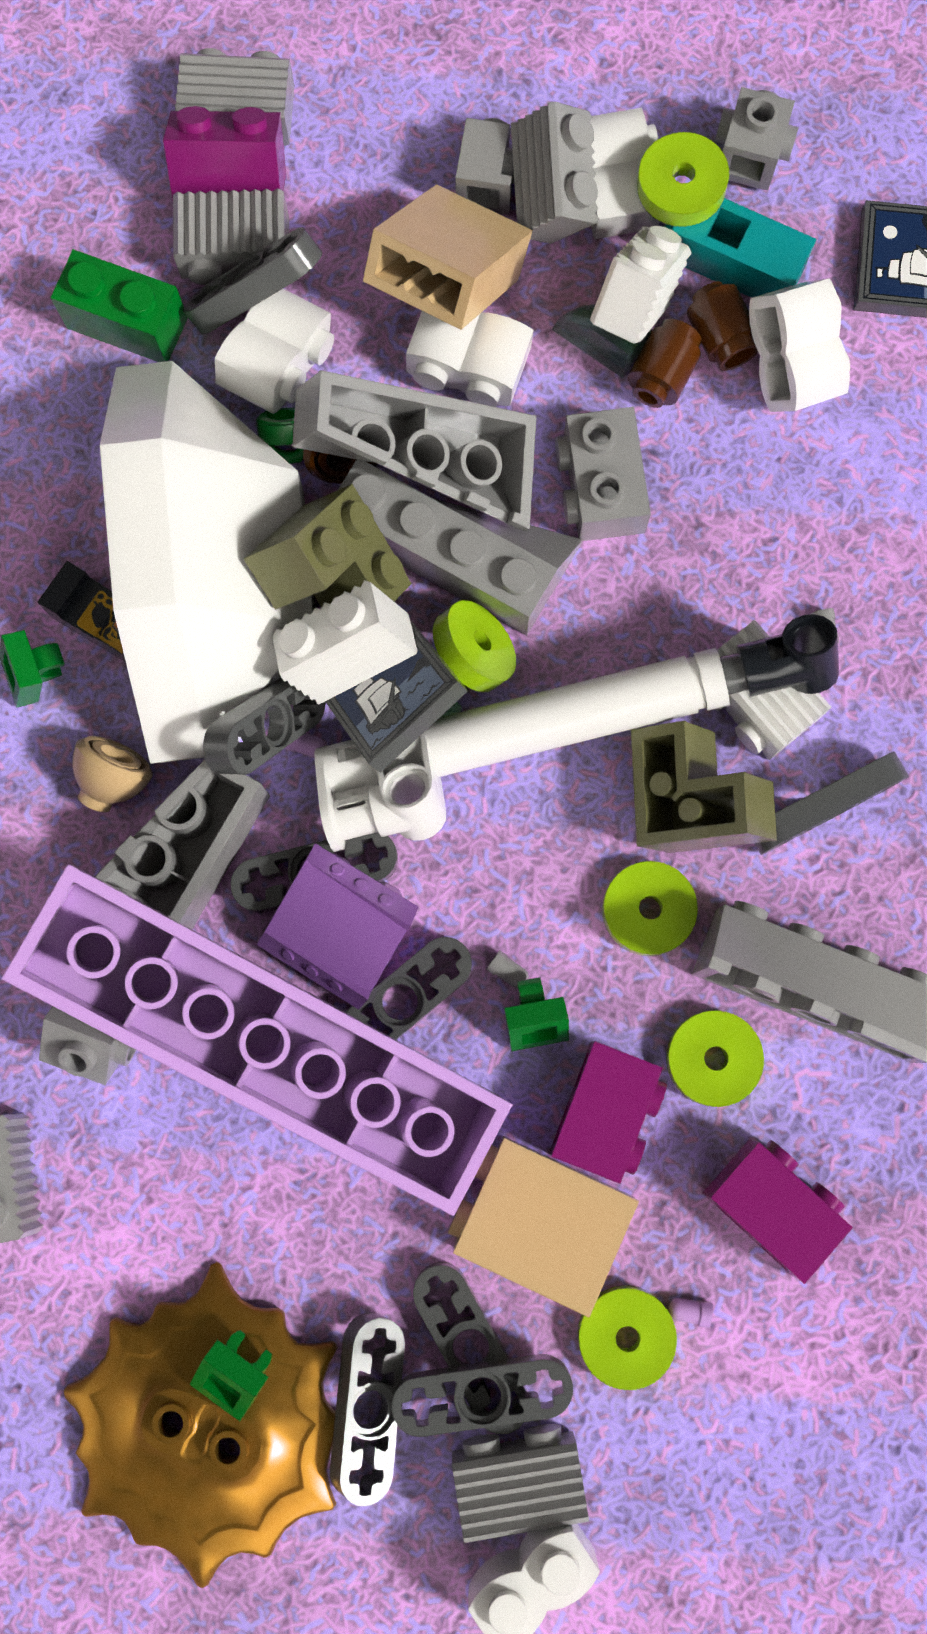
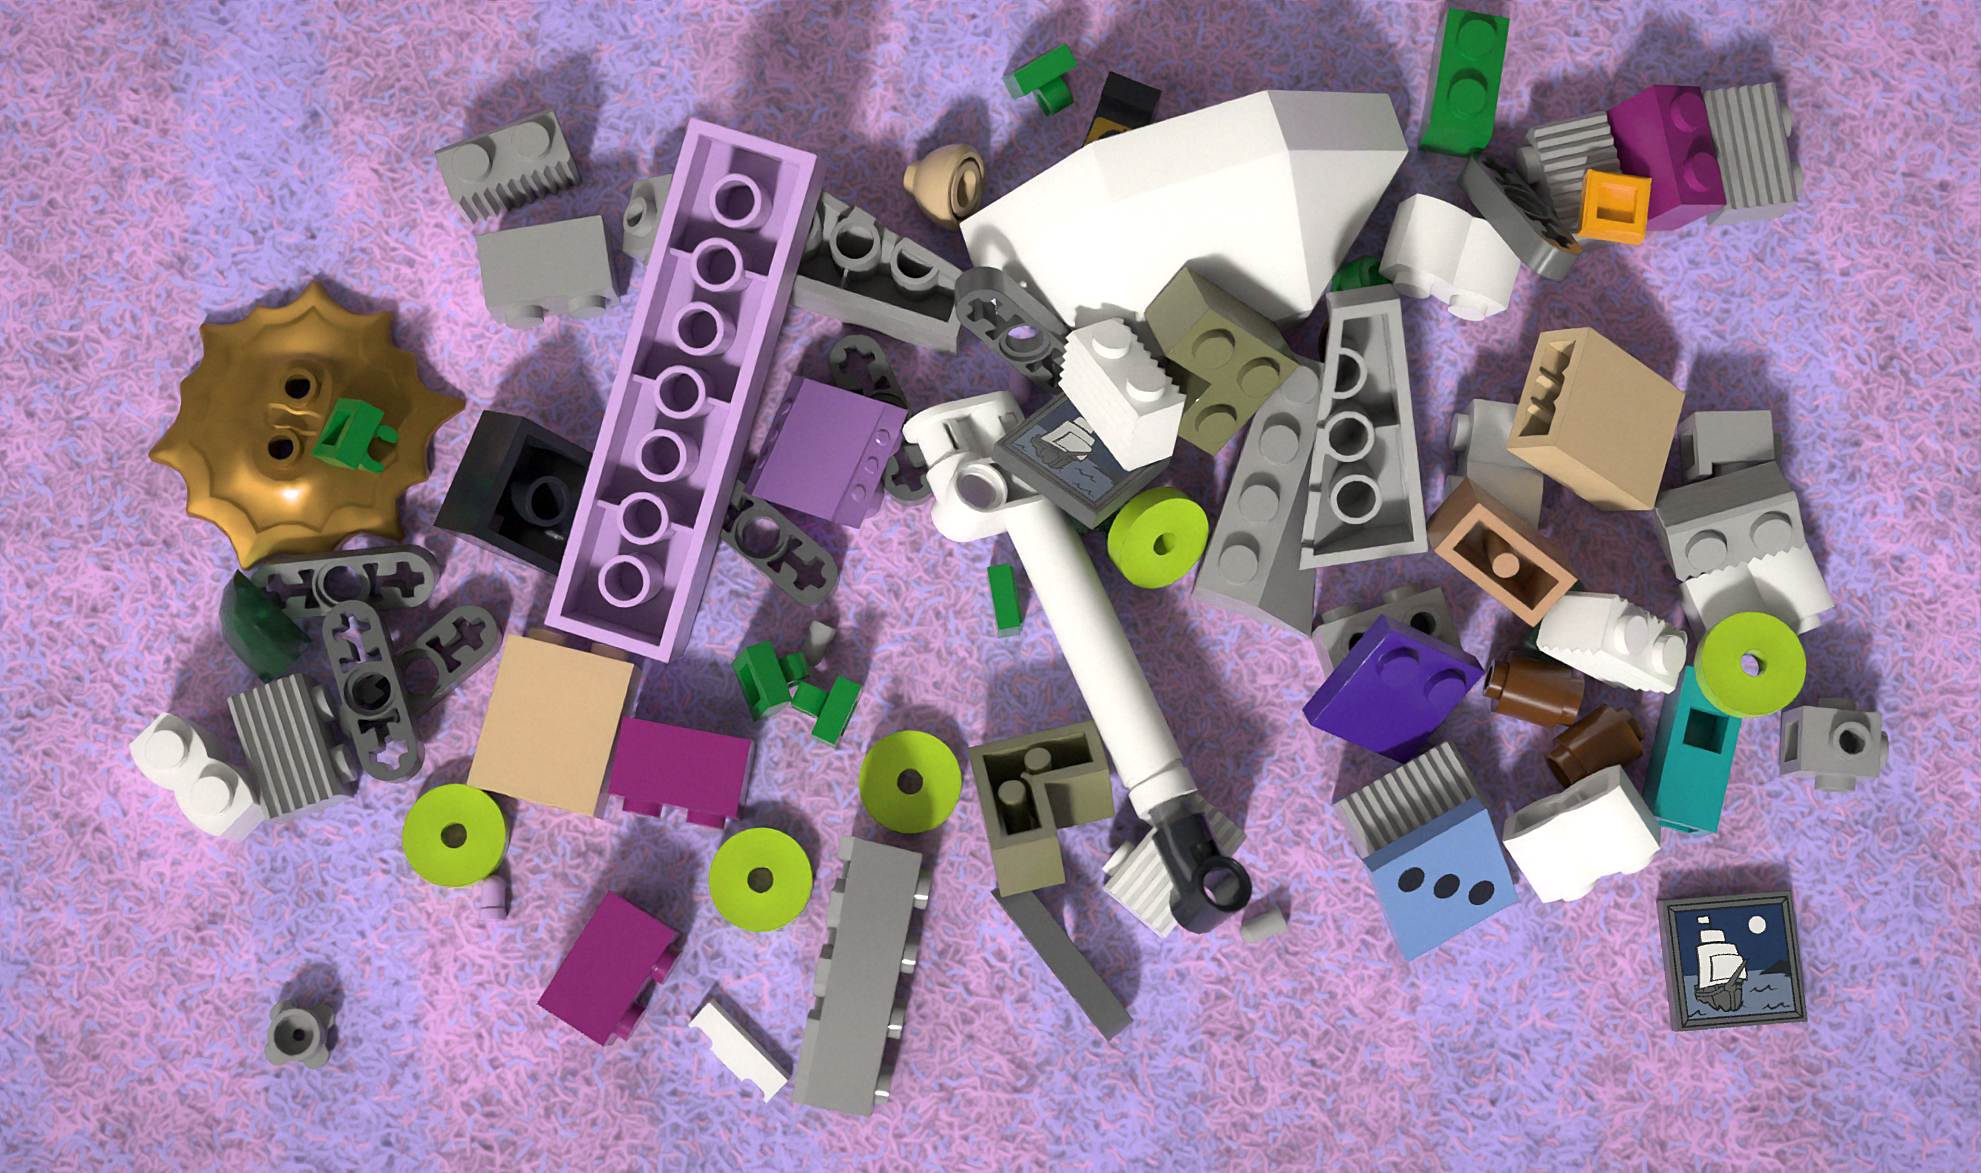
camera: 75 degrees right, 0 degrees up
(109, 1158) = (548, 271): none -> light grey brick
(262, 201) = (1613, 207): none -> light orange tile
(317, 1220) = (516, 491): none -> black slope
(401, 1499) = (258, 630): none -> clear green brick
(504, 792) = (1004, 600): none -> green tile
(550, 353) = (1500, 552): none -> medium nougat brick
(576, 965) = (831, 710): none -> green tile
(651, 470) = (1393, 689): none -> dark purple plate
(749, 483) = (1407, 798): none -> light grey brick
(798, 1535) = (283, 1046): none -> light grey plate
(816, 468) = (1441, 879): none -> medium blue tile
(862, 1104) = (740, 1050): none -> white piece

